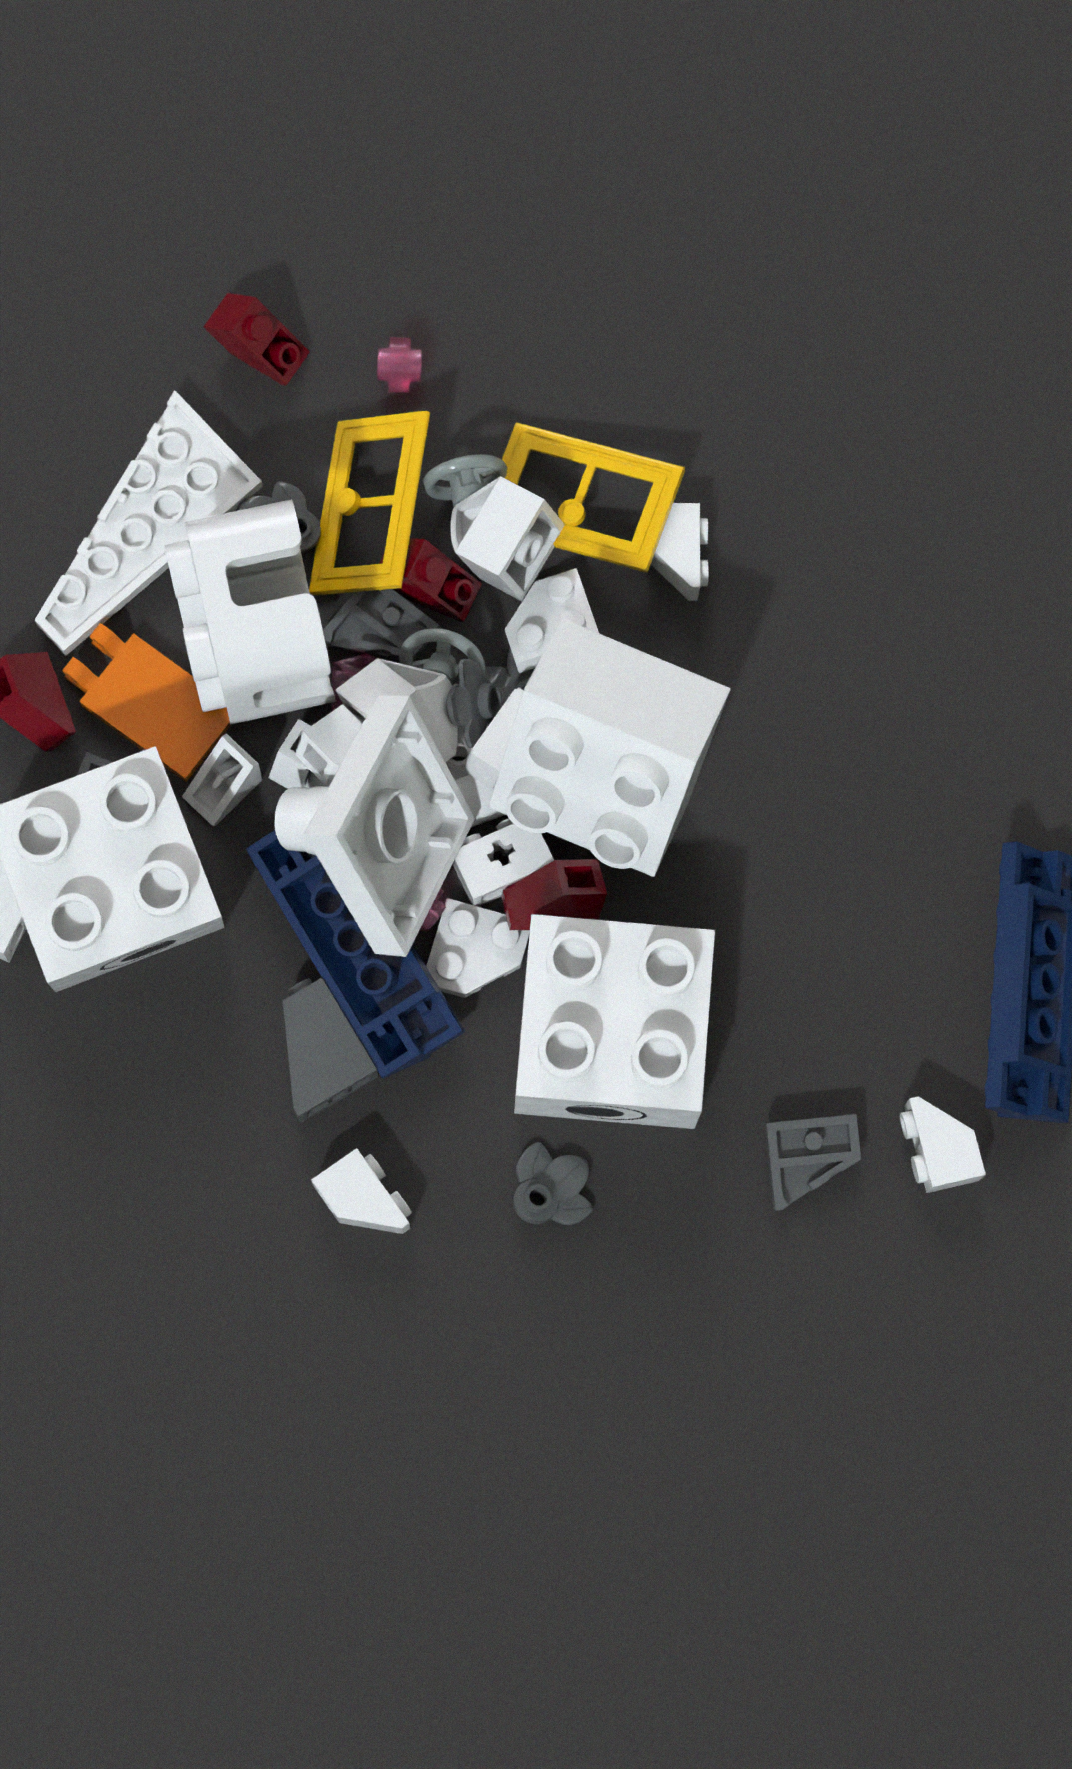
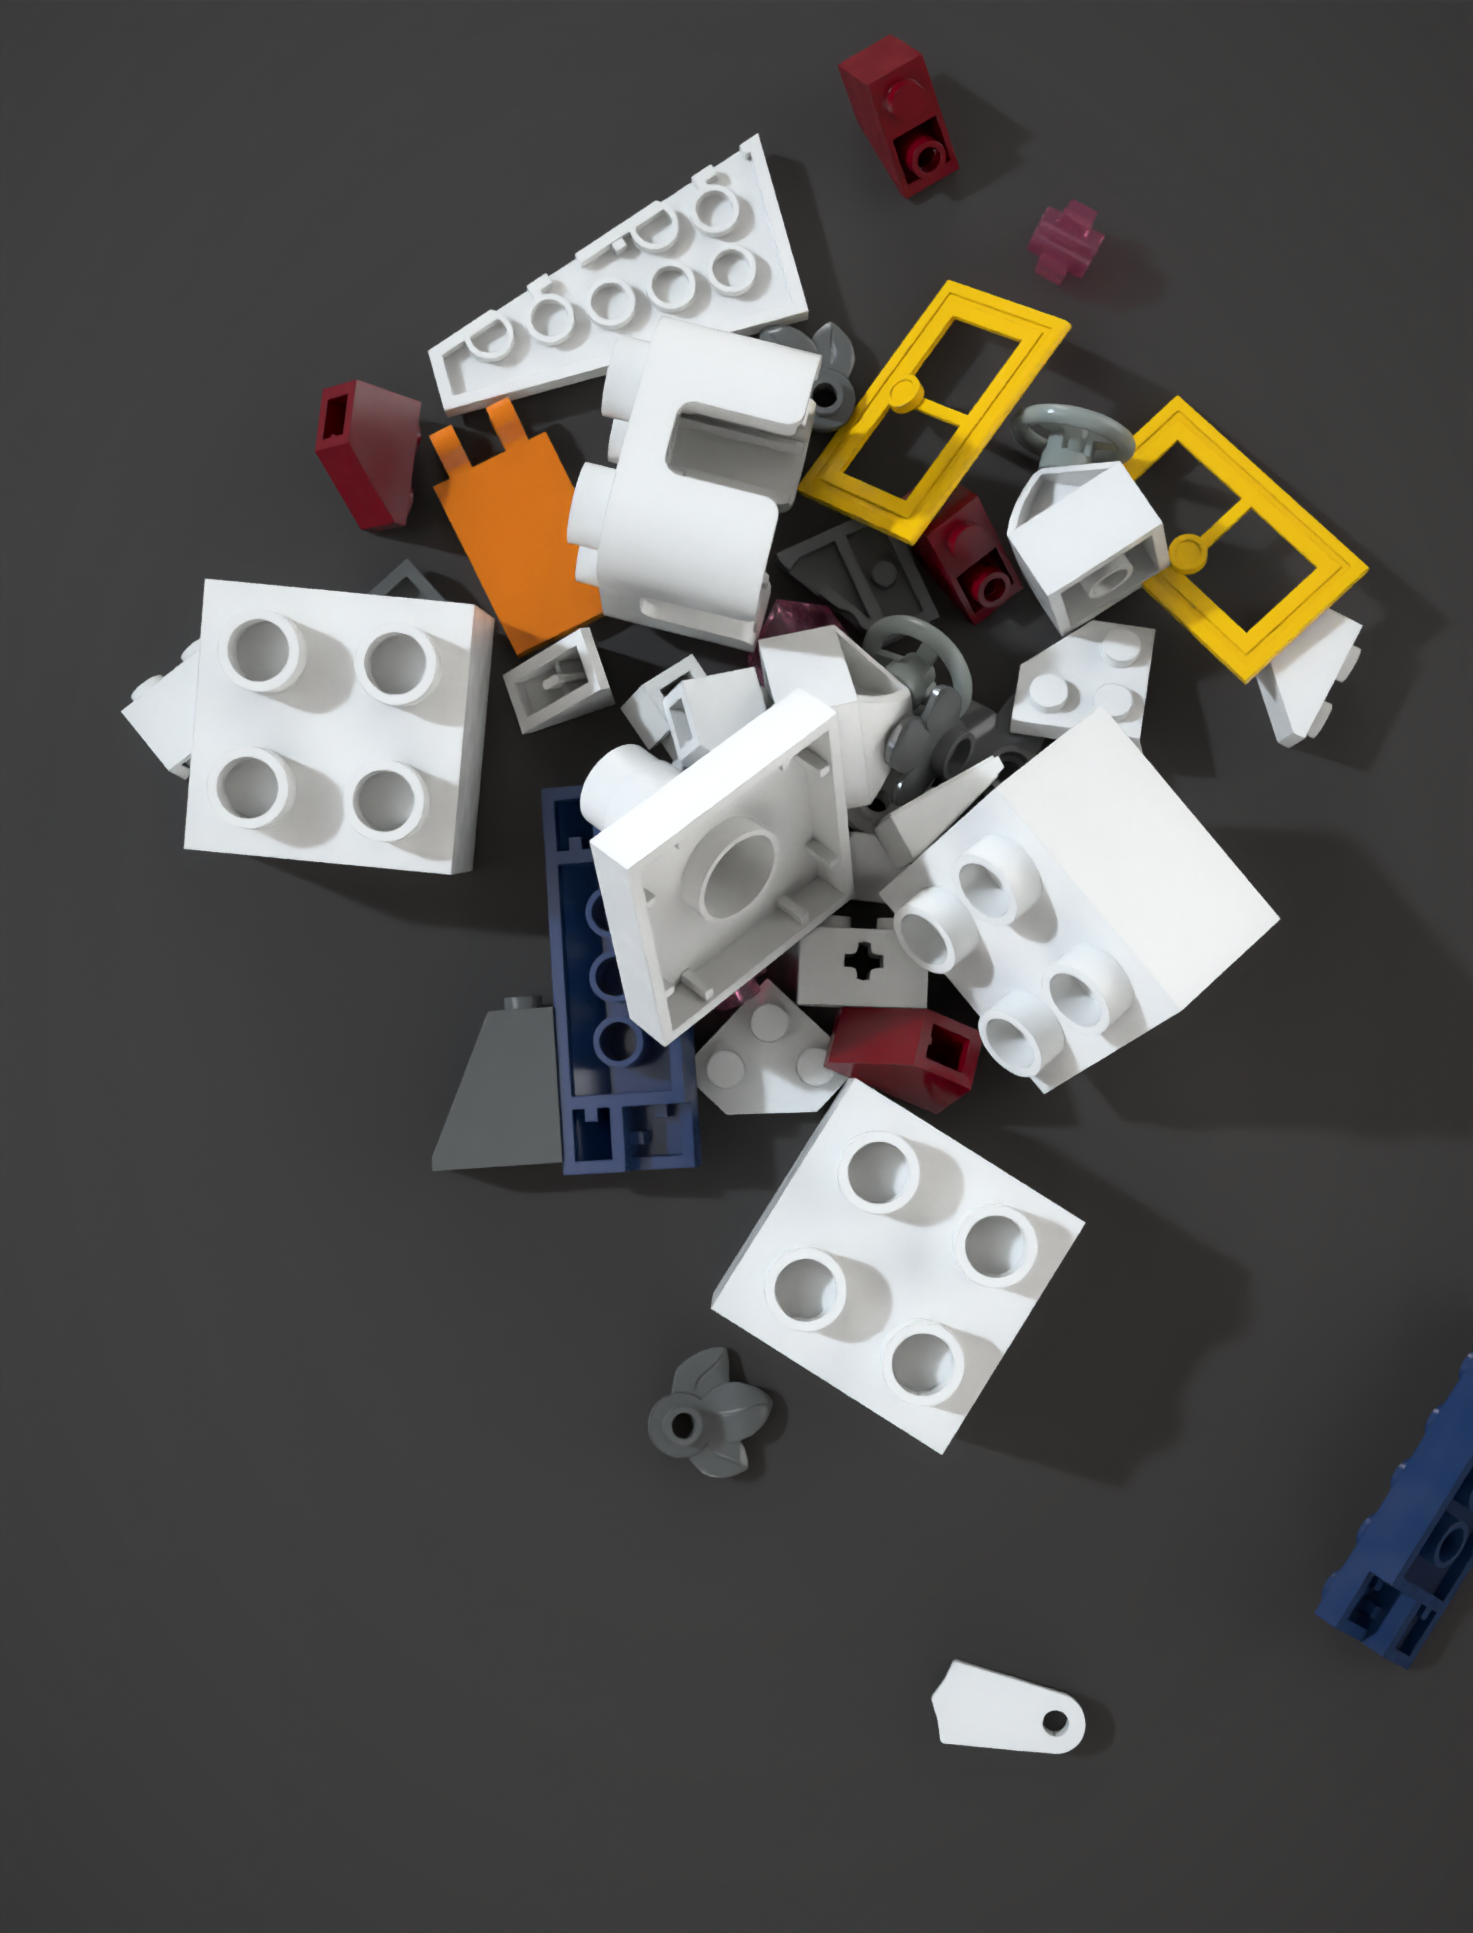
camera: 35 degrees right, 10 degrees up
(358, 1197) = (461, 1307): white slope -> none
(808, 1154) = (1057, 1543): dark grey wing -> none
(831, 1277) = (1003, 1712): none -> white piece
(943, 1147) = (1230, 1631): white slope -> none

